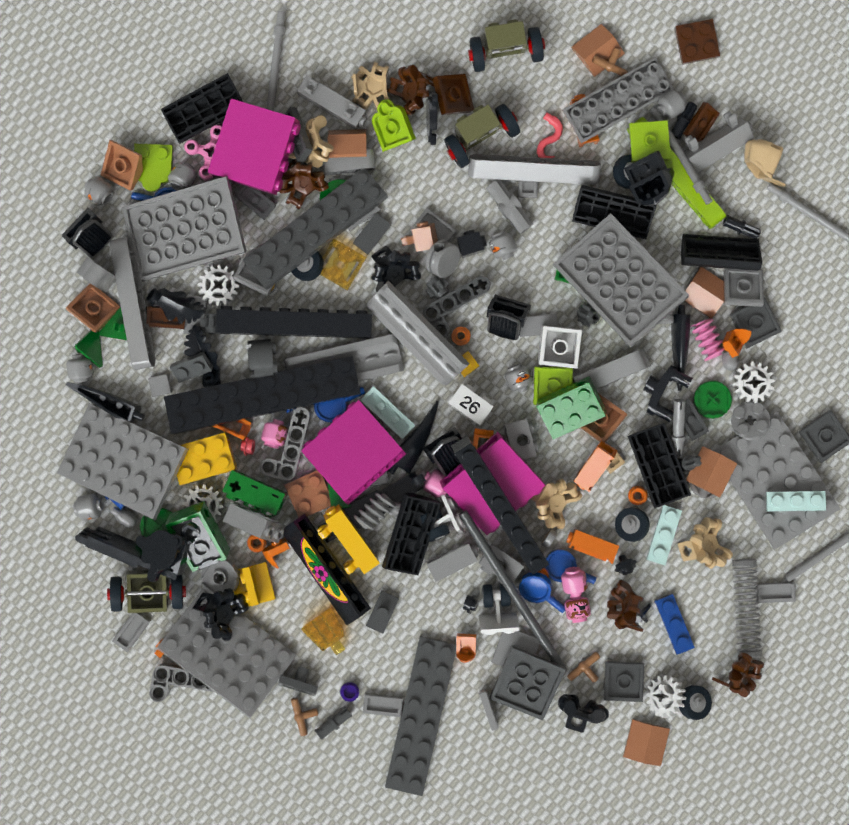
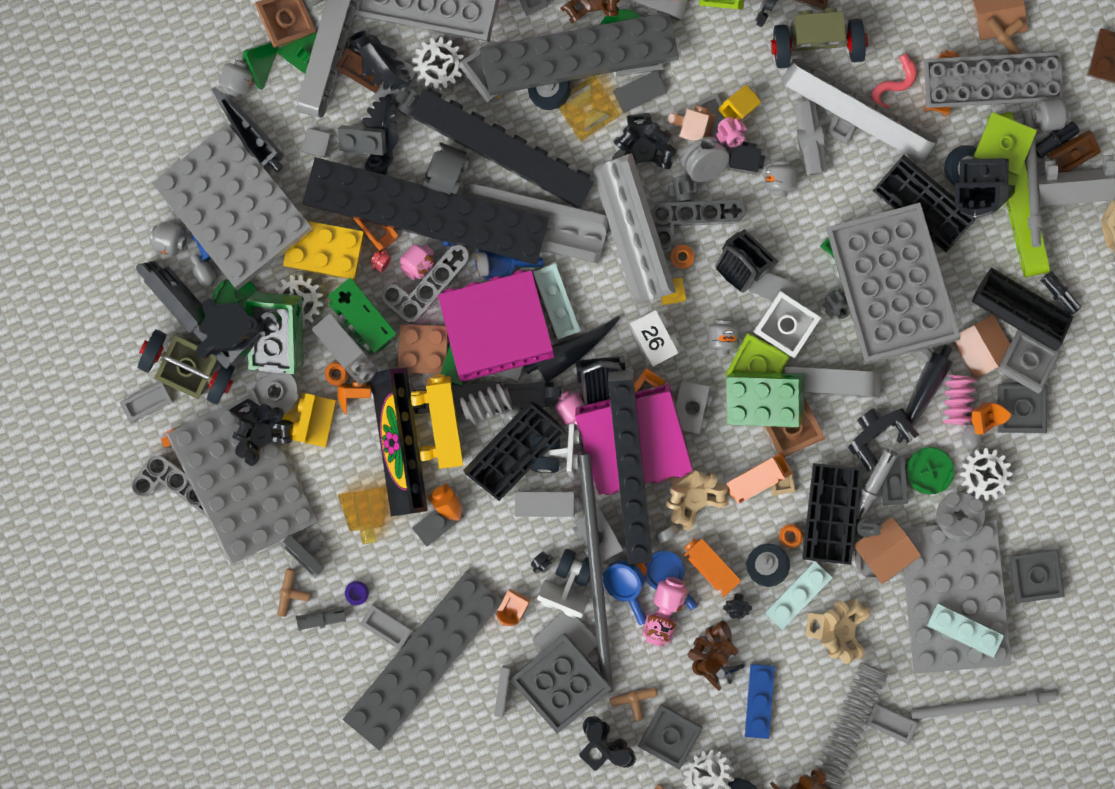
camera: 30 degrees right, 0 degrees up
(321, 412) = (482, 264): none -> light grey tile
(381, 595) = (446, 502): none -> orange plate
(447, 208) = (740, 104): none -> yellow brick
(451, 230) = (731, 132): none -> bright pink gear

